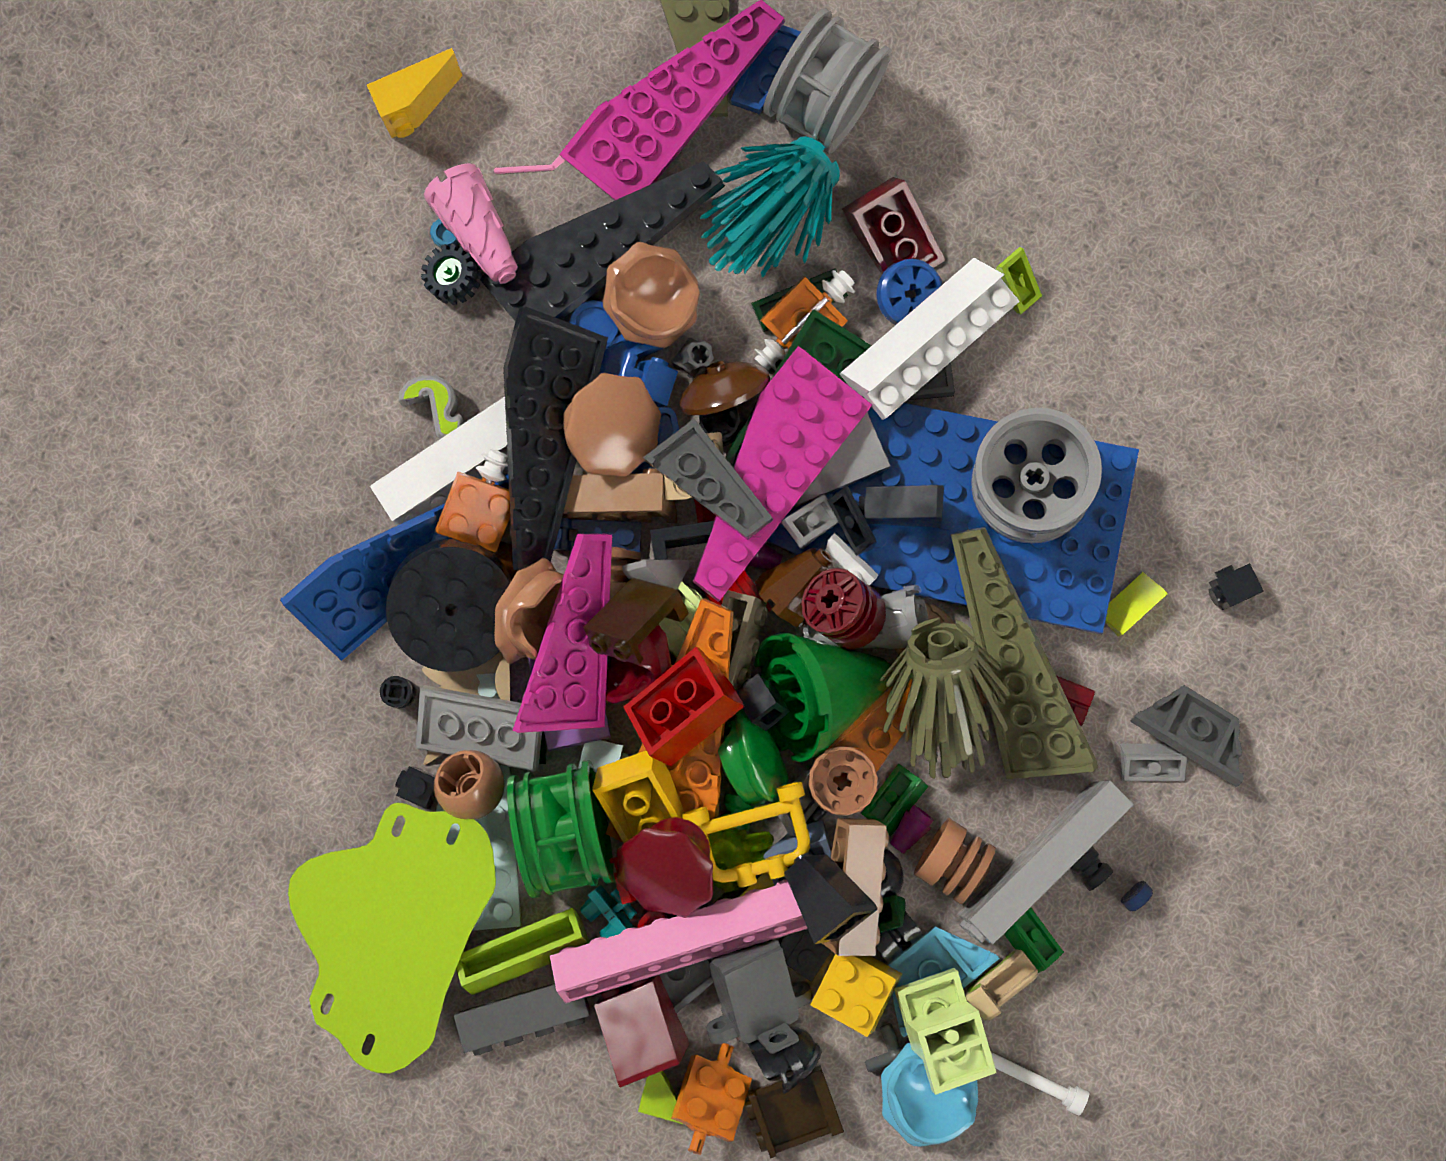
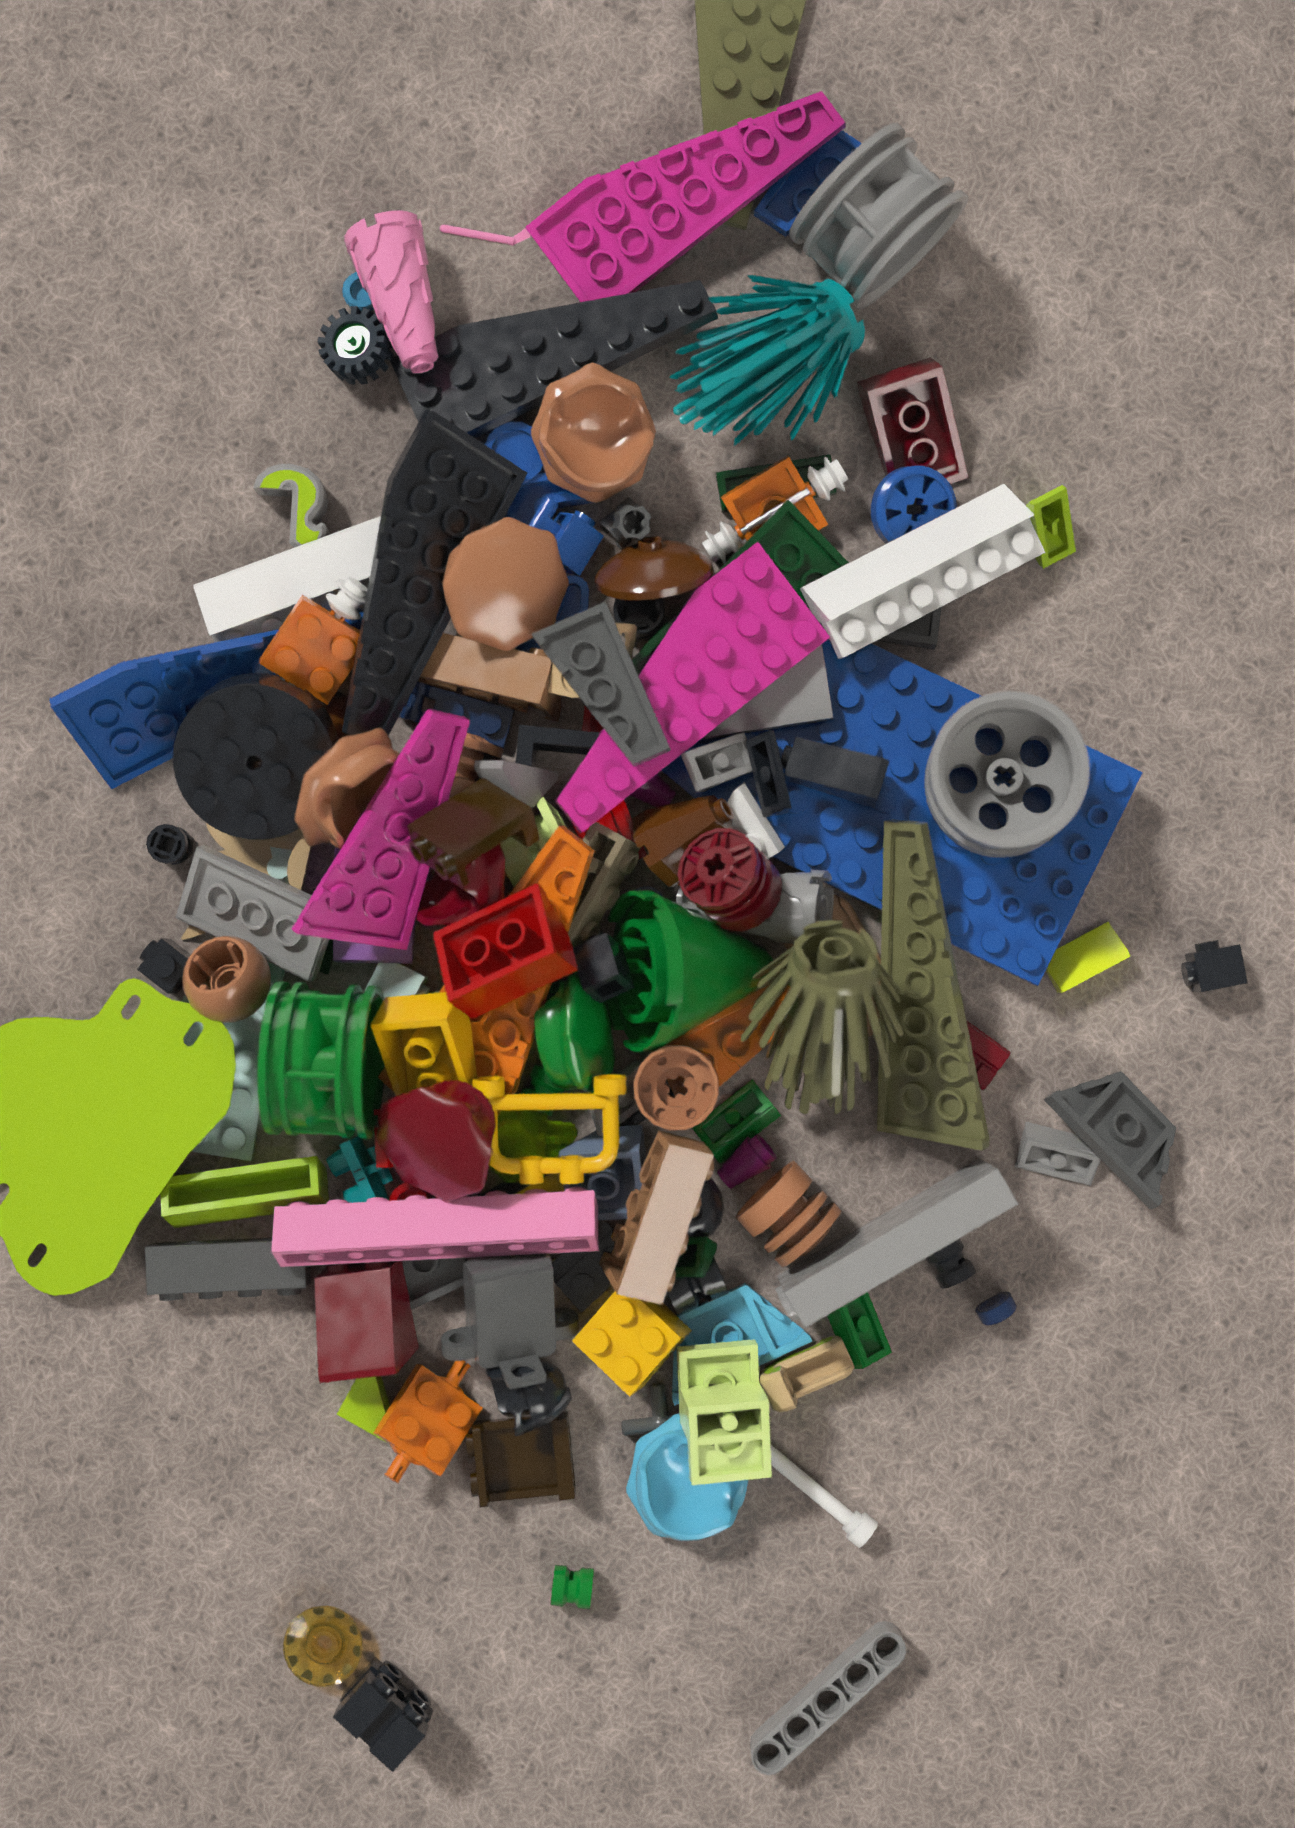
camera: 10 degrees right, 5 degrees up
(414, 92) = (363, 103): yellow slope -> none
(827, 897) = (620, 1223): black slope -> none

